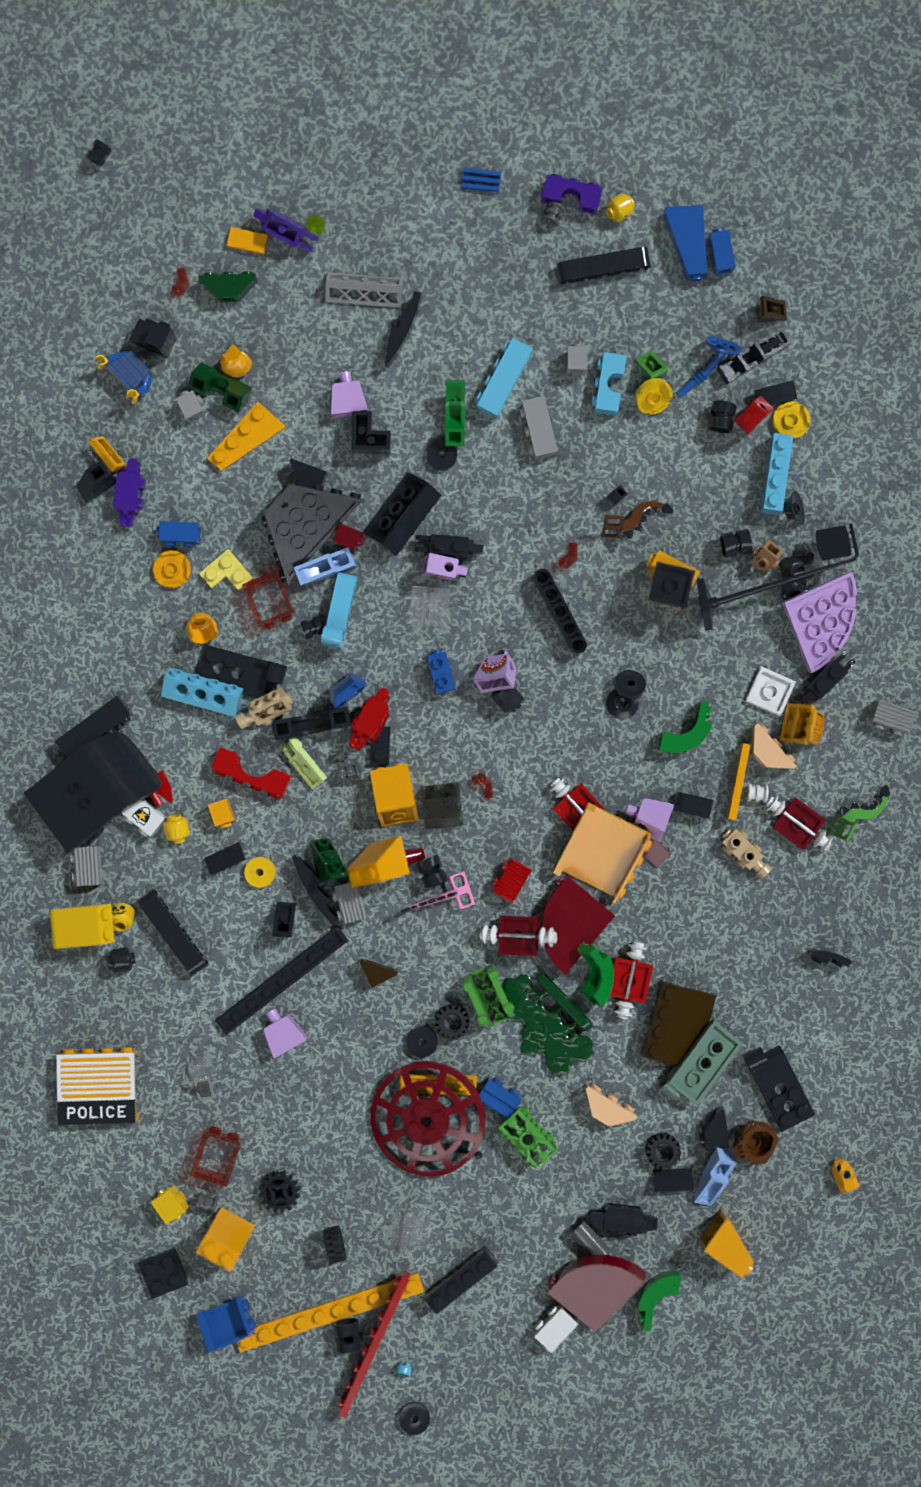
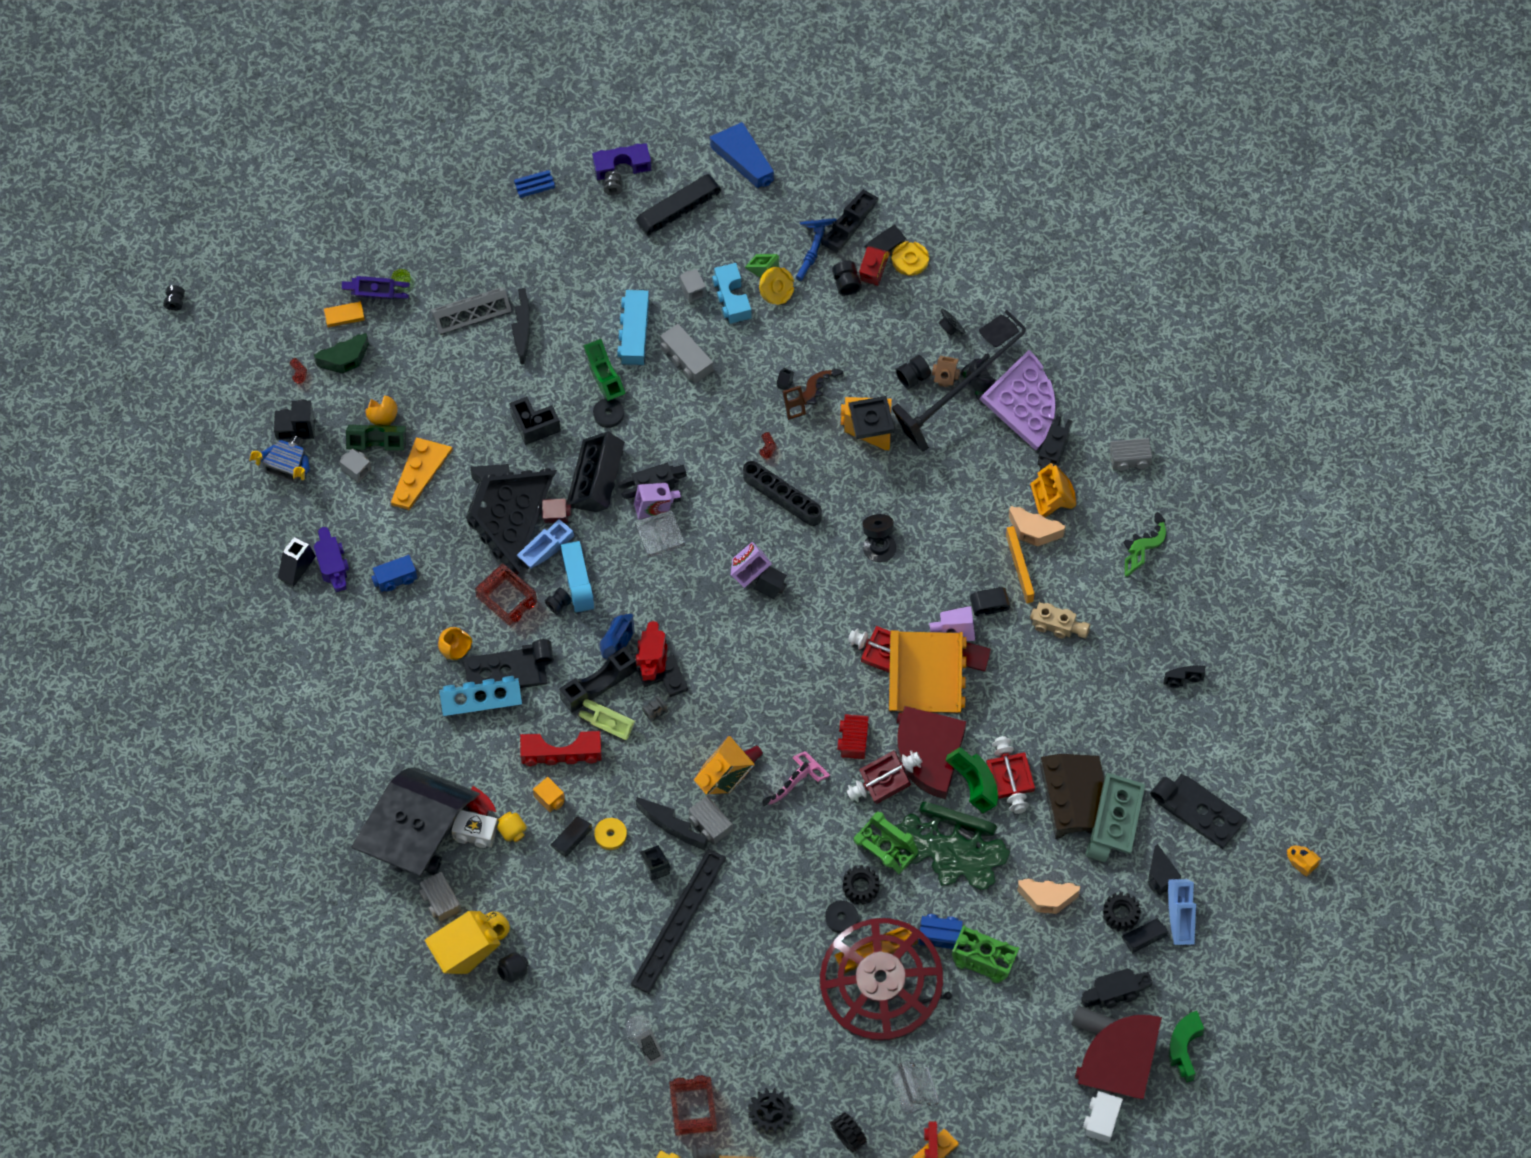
camera: 25 degrees left, 25 degrees down
(96, 1086) = (544, 1092): panel -> none
(99, 723) = (399, 757): black brick -> none
(107, 453) = (290, 533): light orange tile -> none
(171, 569) = (397, 614): light orange tile -> none
(172, 933) = (553, 920): black beam -> none
(226, 566) = (450, 586): light yellow plate -> none
(266, 708) = (548, 684): tan brick -> none
(282, 1033) = (703, 964): lavender torso -> none
(327, 861) = (672, 791): dark green slope -> none
(347, 397) = (496, 399): lavender torso -> none
(376, 972) = (766, 870): dark brown slope -> none
(394, 795) = (707, 710): light orange slope -> none
(431, 871) = (771, 757): black wheel -> none
(441, 671) = (697, 588): blue brick -> none
(441, 805) = (756, 700): clear smoke slope -> none
(467, 1276) = (988, 1112): black arch -> none
(485, 783) = (780, 664): clear red arm -> none
(620, 207) = (670, 154): yellow head -> none
(683, 742) = (953, 552): green arch -> none
(721, 252) = (777, 152): blue brick -> none
(726, 1246) = (1227, 963): light orange slope -> none
(755, 1142) = (1203, 861): reddish brown helmet -> none
(757, 793) = (1043, 567): white bush -> none
(770, 310) = (844, 179): dark brown slope -> none
(770, 691) = (1009, 480): white tile -> none
(776, 473) = (919, 302): medium azure brick -> none
(799, 823) = (1094, 576): dark red plate -> none

